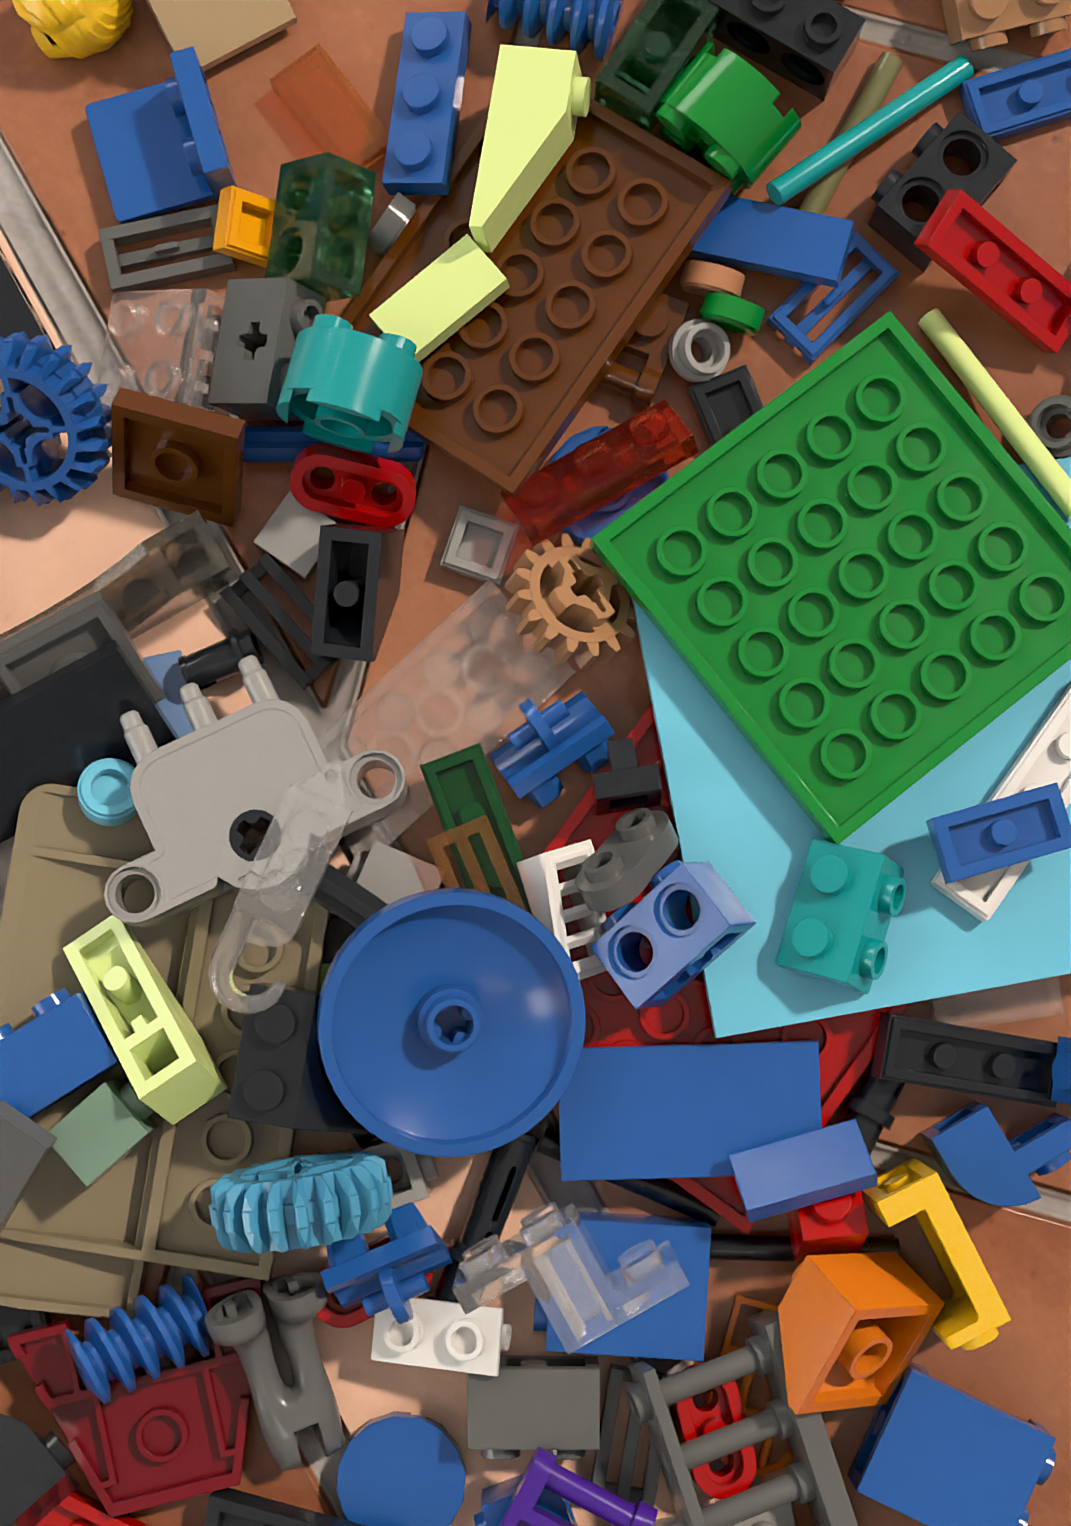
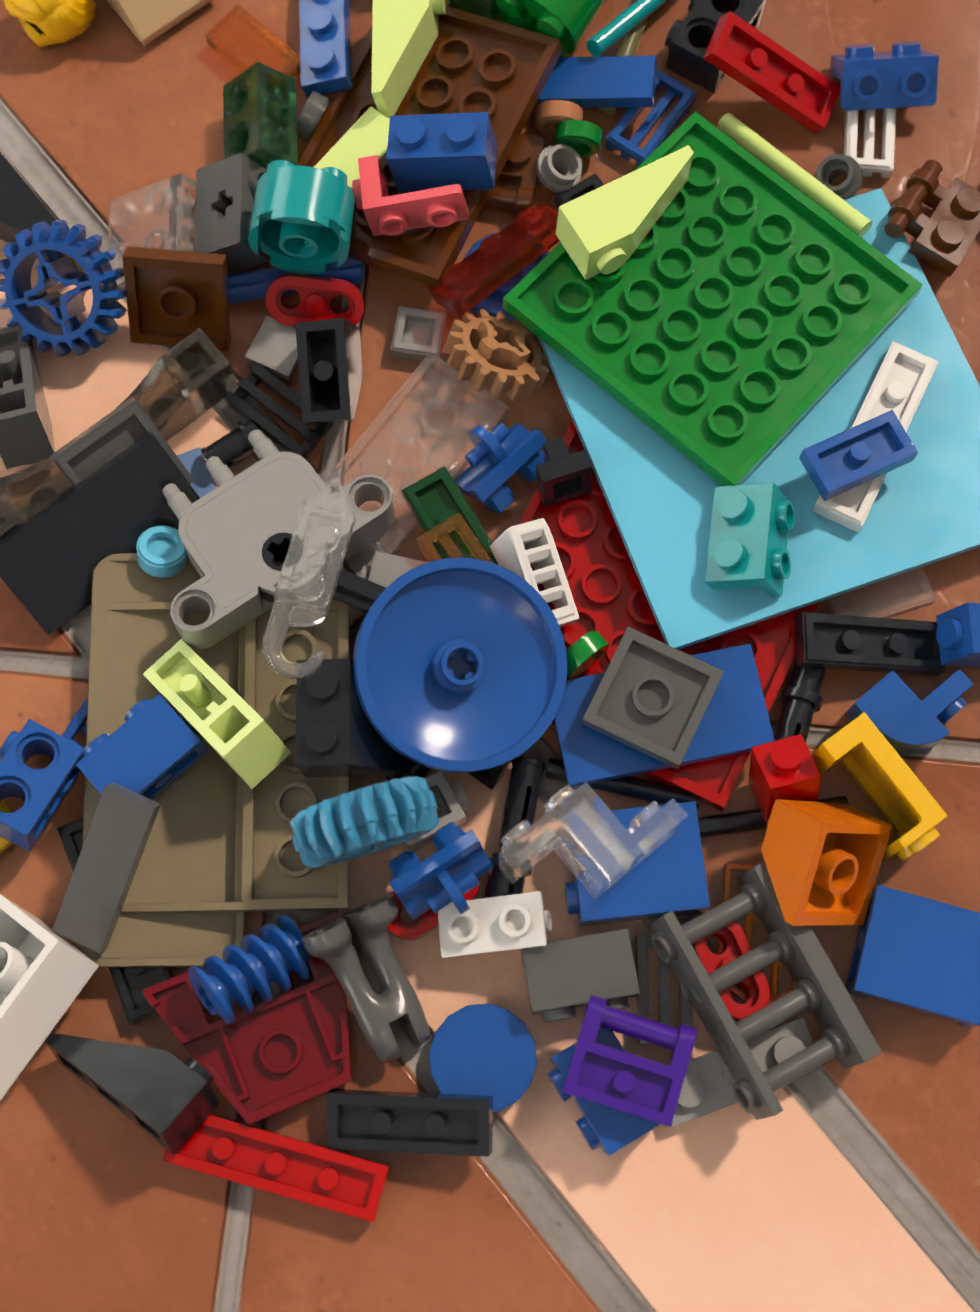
camera: 10 degrees left, 10 degrees down
(103, 1130) = (198, 802): sand green brick -> none
(161, 144) = (133, 89): blue bracket -> none
(167, 274) = (149, 168): dark grey tile -> none
(244, 225) = (202, 134): light orange tile -> none
(464, 401) = (404, 211): none -> coral bracket
(546, 325) = (442, 151): none -> blue brick
(609, 1020) = (585, 653): none -> green tile
(626, 860) = (575, 526): dark grey plate -> none
(678, 946) = (629, 582): brick -> none
(682, 1097) = (652, 697): none -> dark grey plate
(748, 462) = (611, 221): none -> yellowish green slope
(803, 1170) = (759, 736): tile -> none

